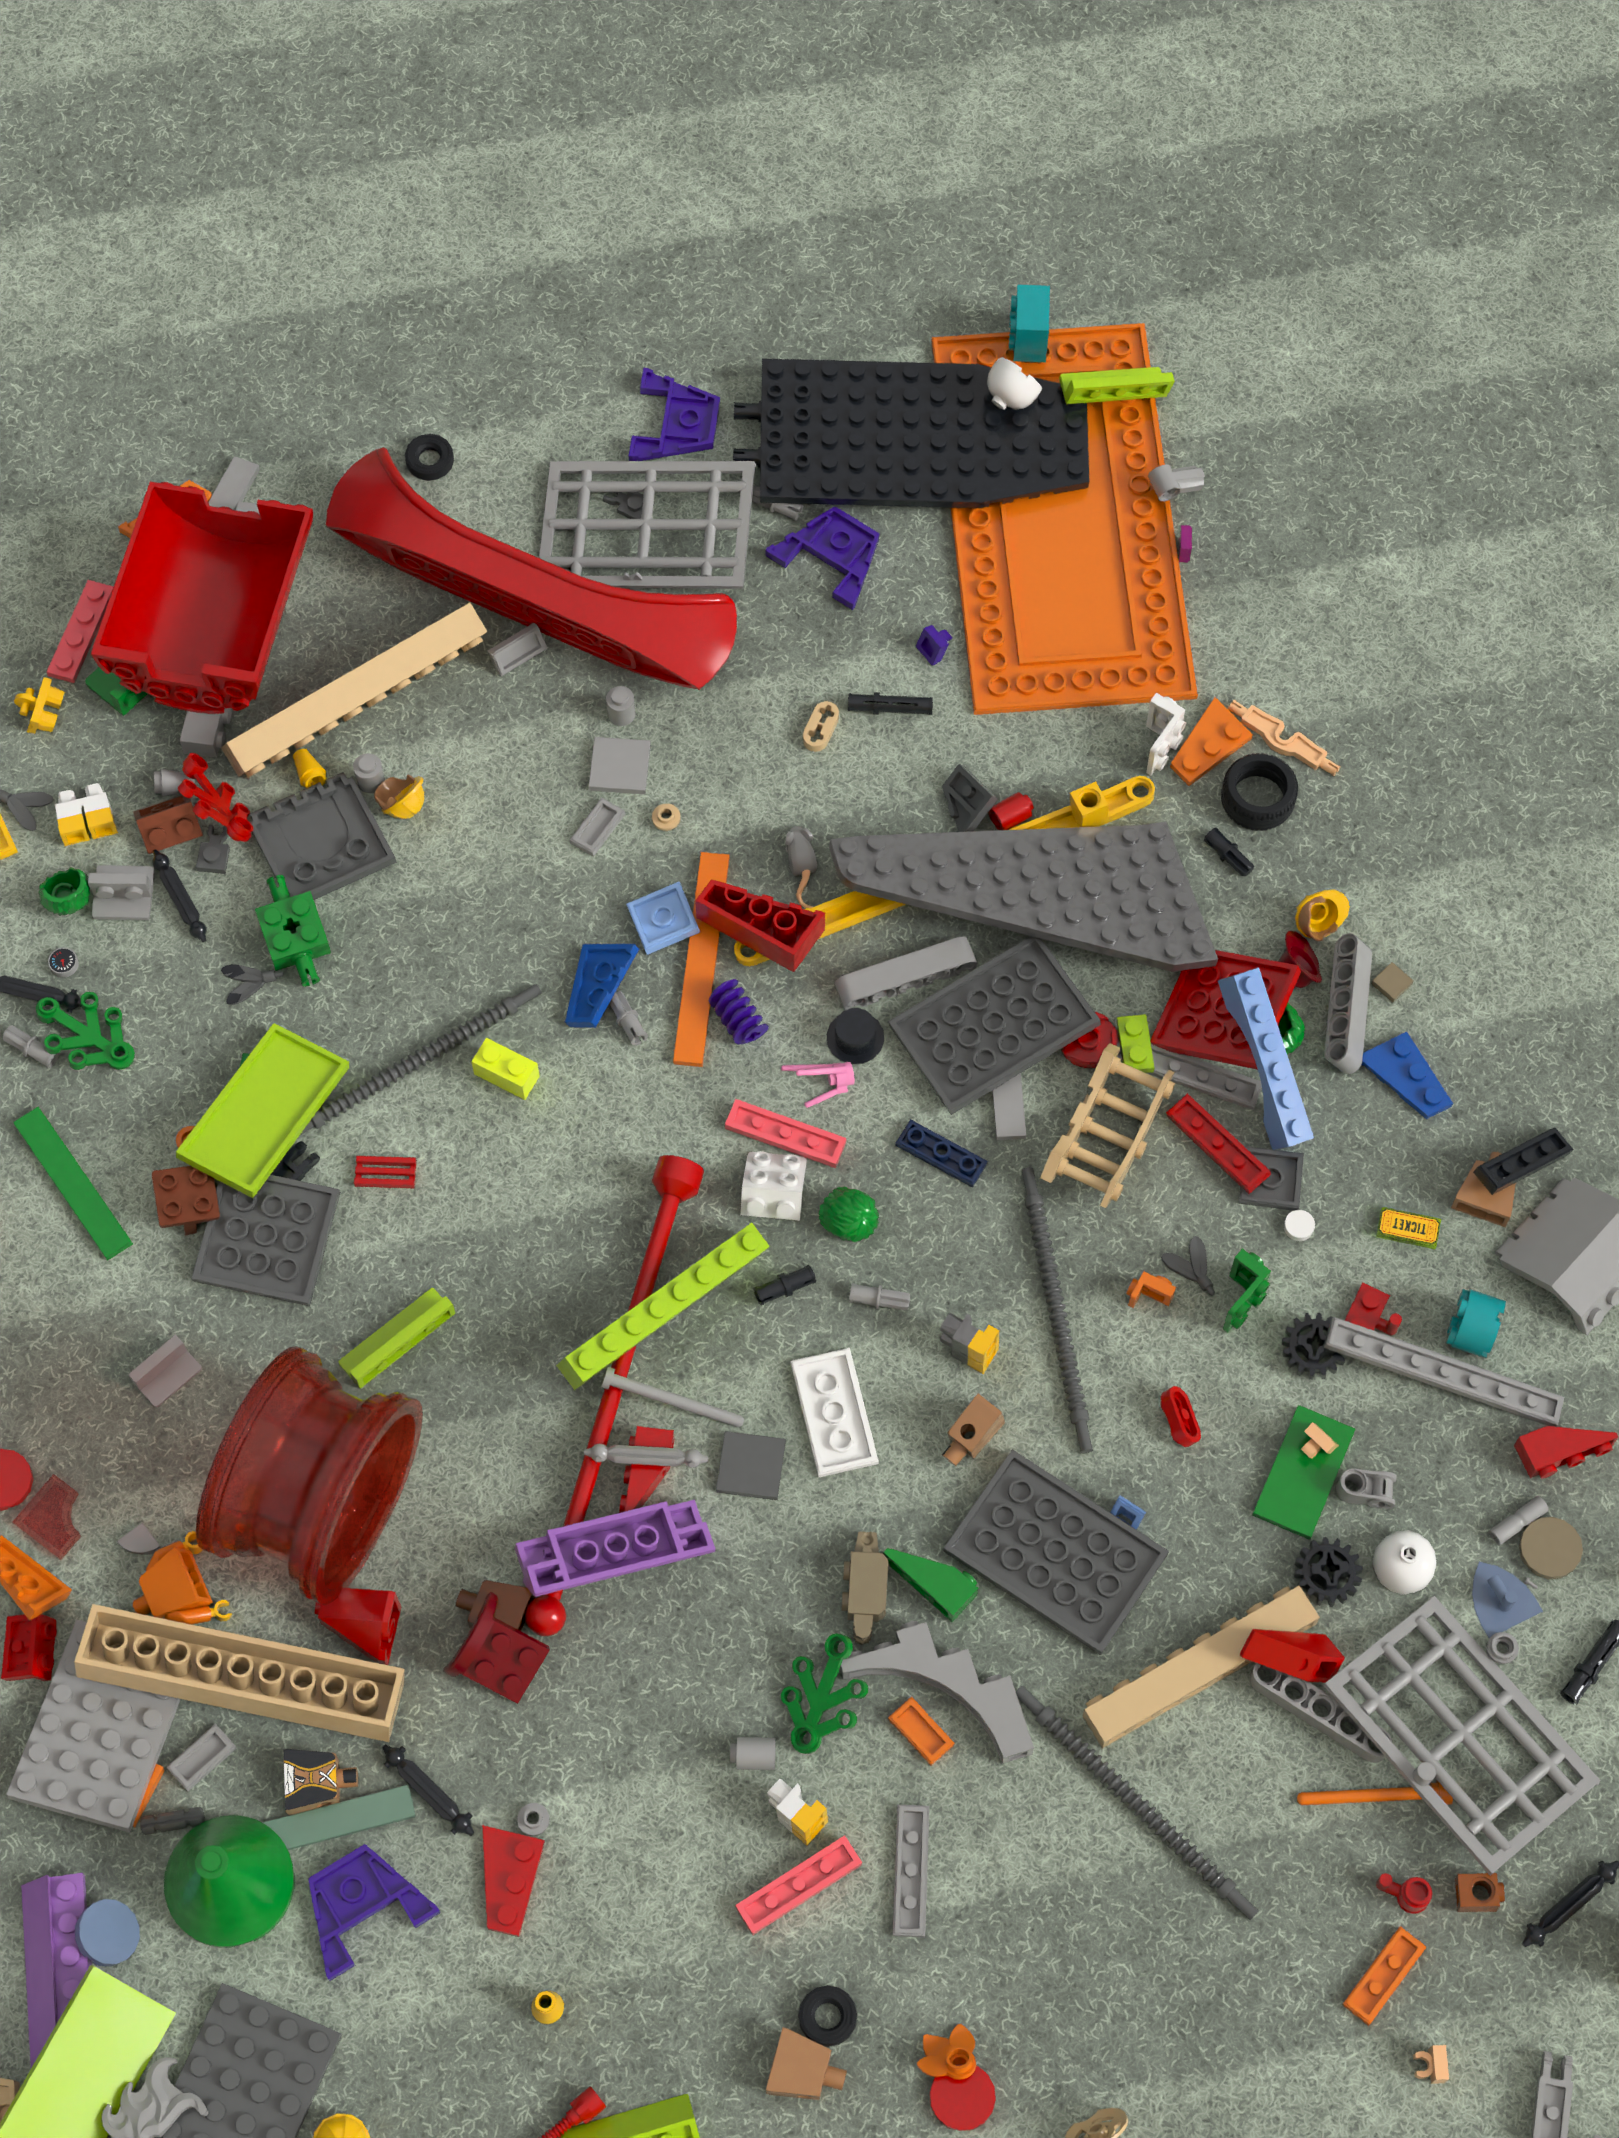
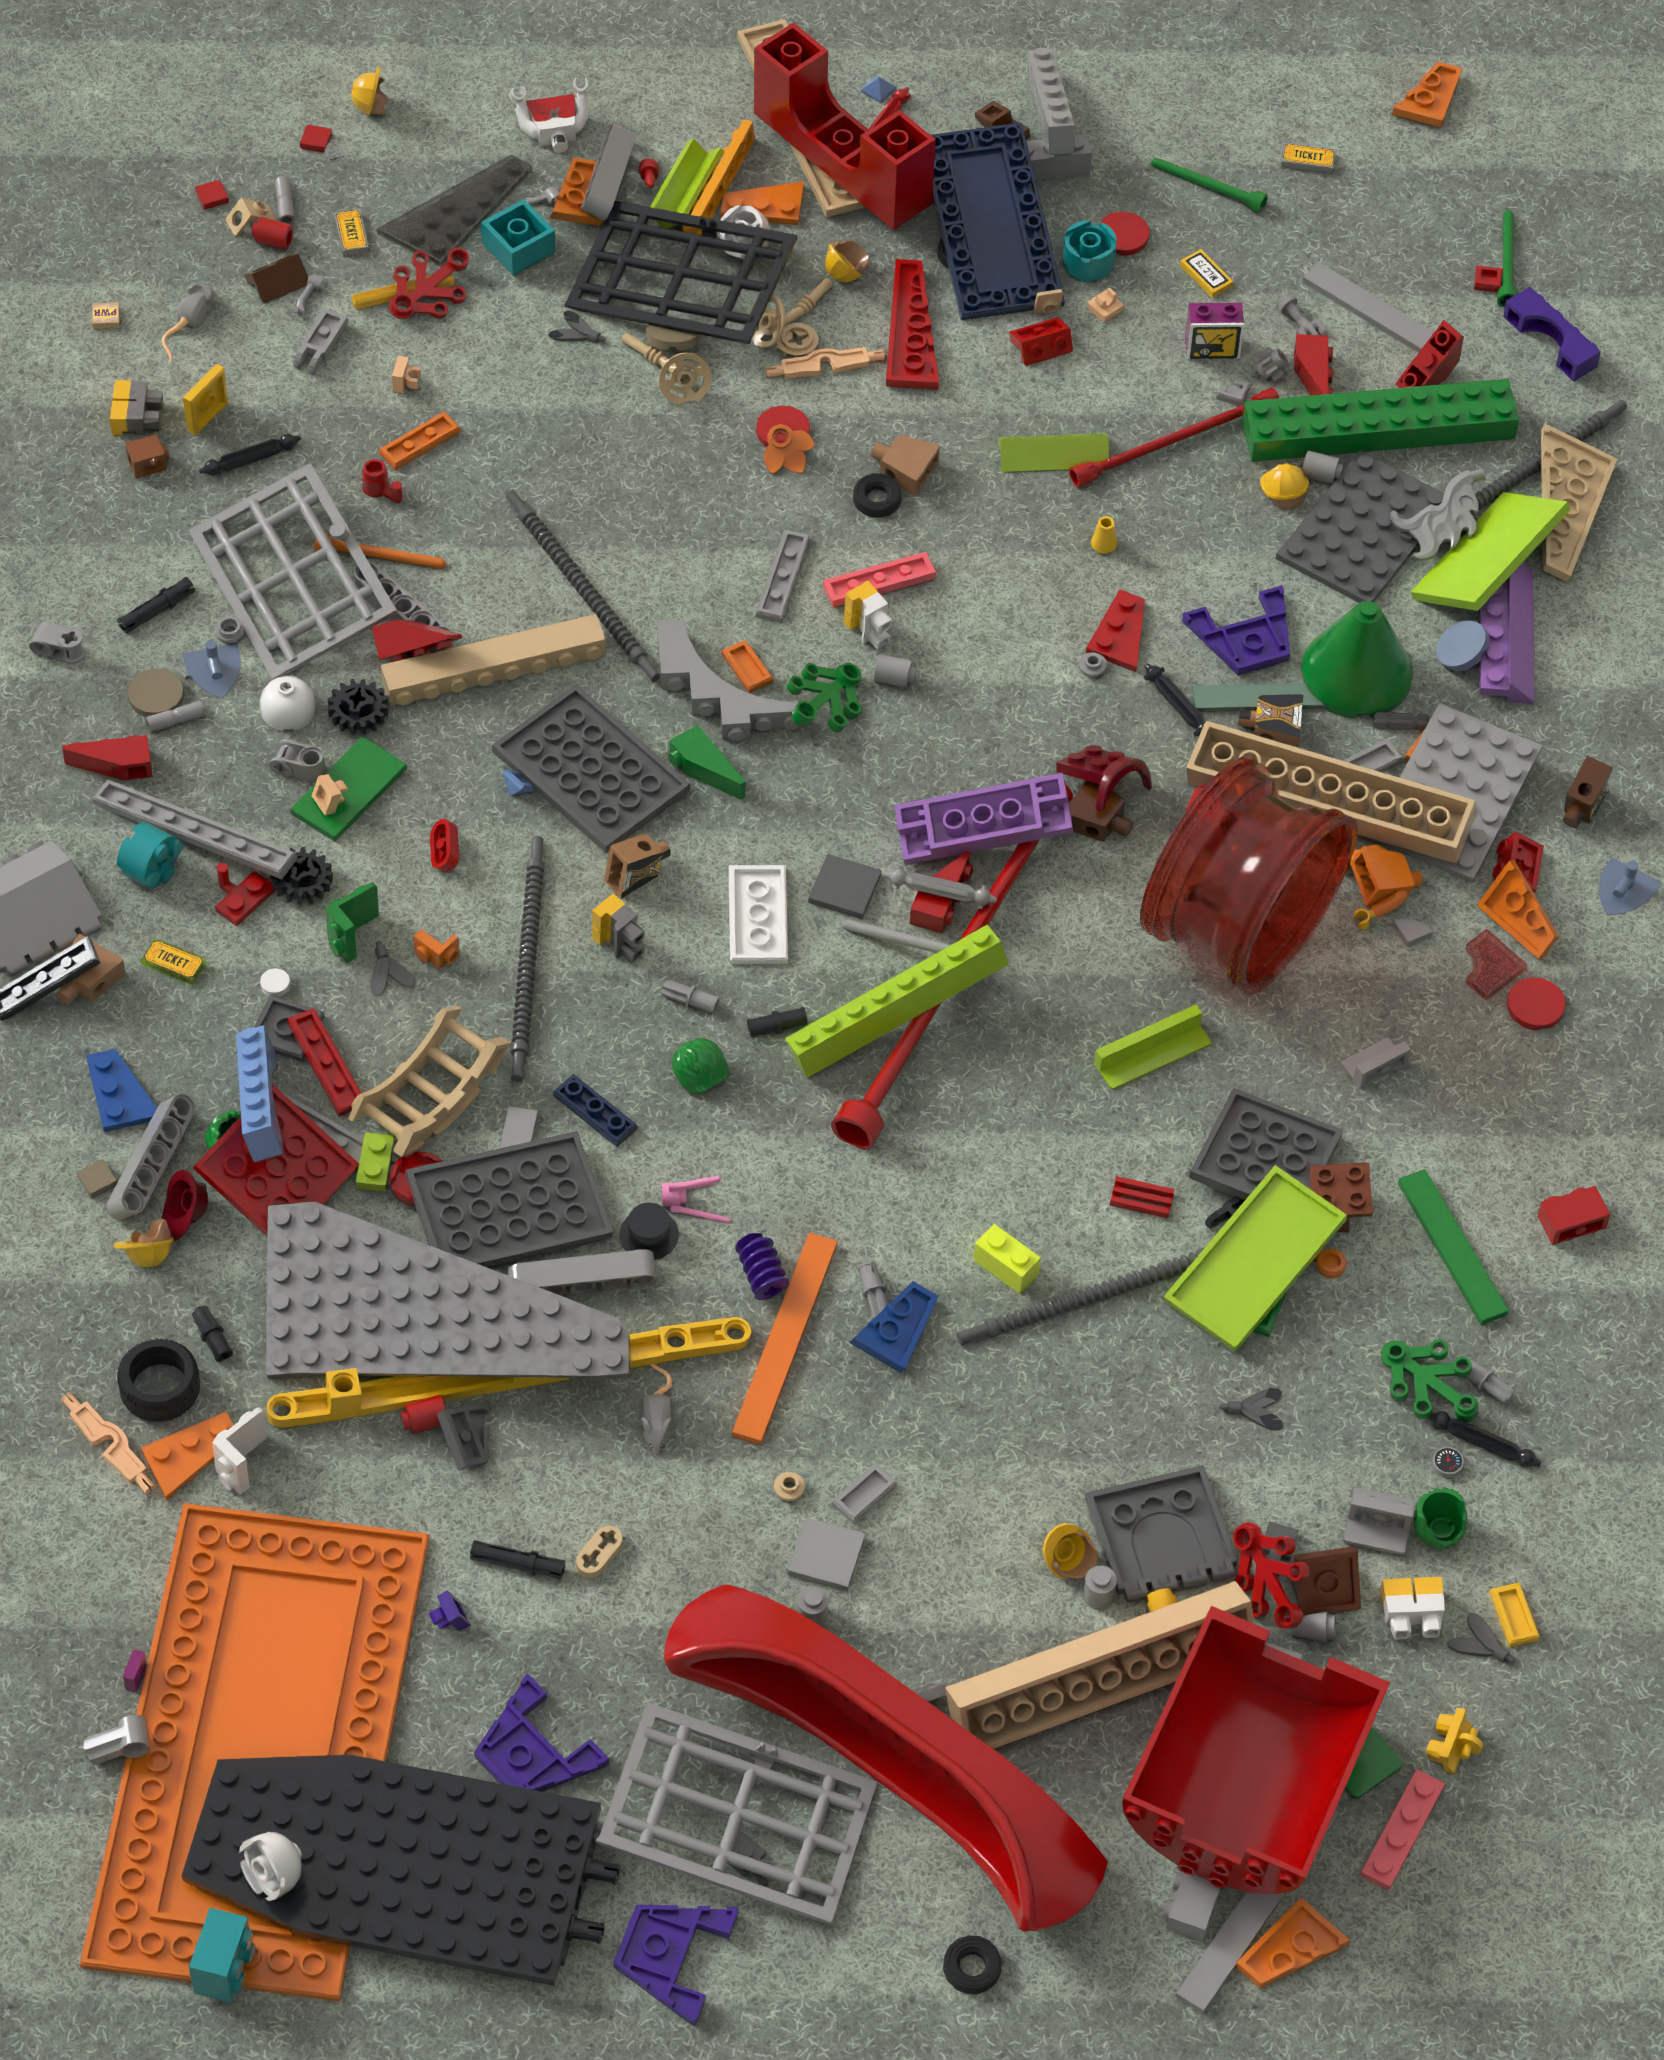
camera: 170 degrees left, 10 degrees down
(179, 896) = (1318, 1501): black wheel -> none
(288, 914) = (1204, 1432): green brick -> none
(663, 918) = (816, 1380): light blue tile -> none
(764, 925) = (717, 1328): red wedge -> none
(773, 1185) = (764, 1111): white bracket -> none
(785, 1133) = (742, 1152): coral plate -> none
(867, 1586) = (766, 769): dark tan hinge -> none
(1115, 385) = (146, 1867): lime panel -> none
(1468, 1903) = (328, 468): dark orange brick -> none

